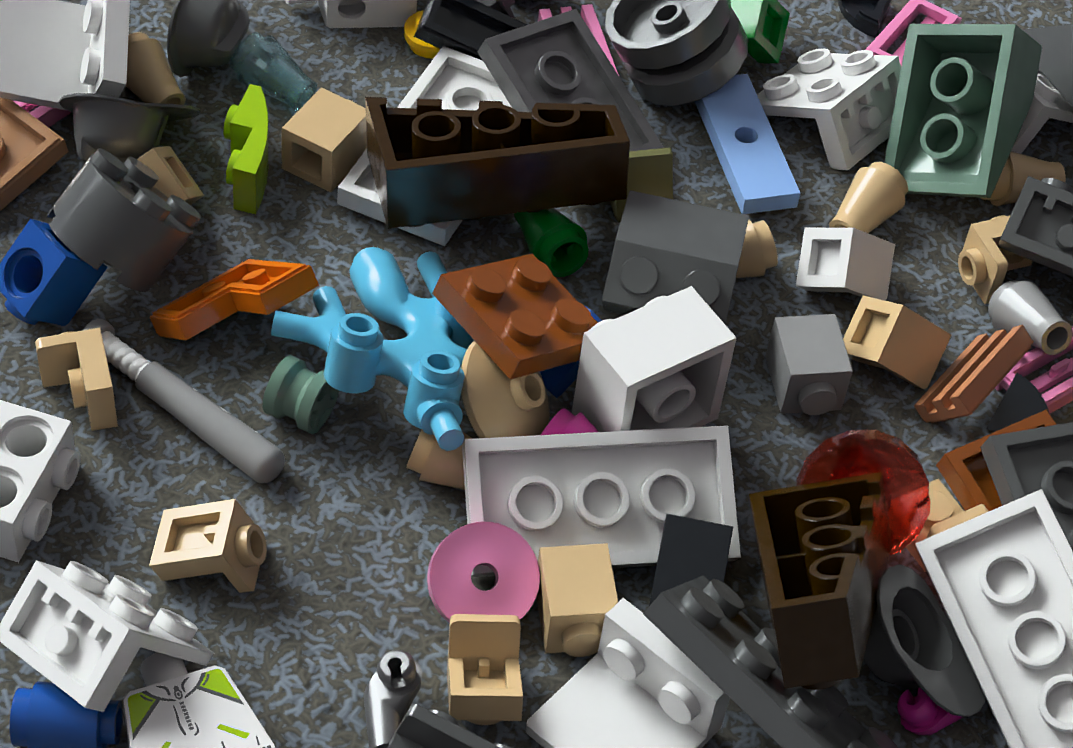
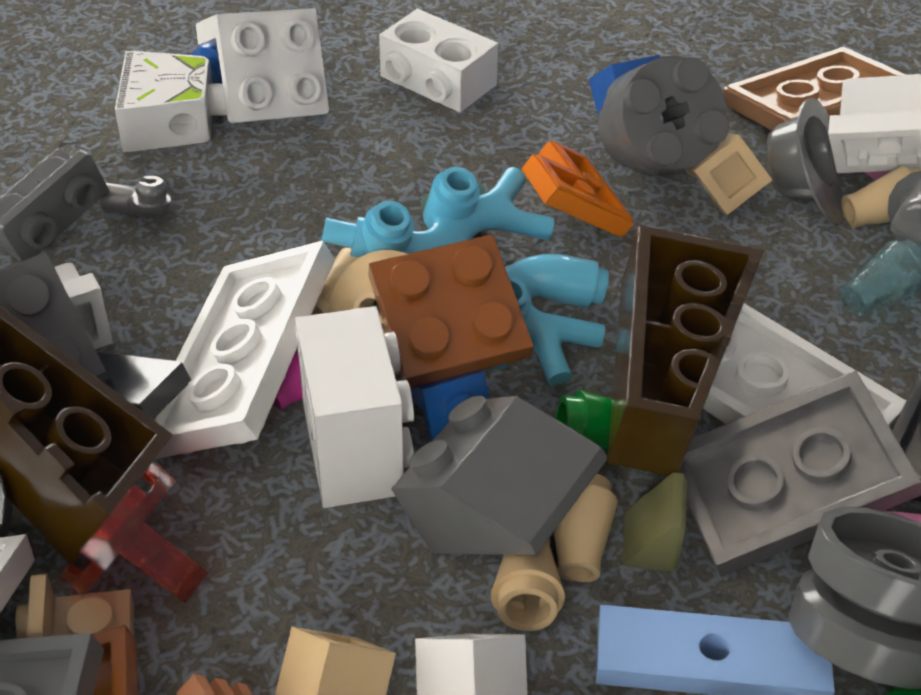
camera: 115 degrees right, 5 degrees down
(81, 362) = (522, 108): tan bracket -> none
(206, 419) = (416, 182): light grey piece -> none
(209, 541) = (326, 141): tan bracket -> none
(248, 163) = (790, 240): lime slope -> none
(324, 139) = (786, 286): tan brick -> none
(484, 668) = (122, 246): tan bracket -> none
(488, 545) = (210, 263): bright pink piece -> none
(574, 597) = (153, 312): tan brick -> none
(808, 364) = (331, 579): light grey brick -> none

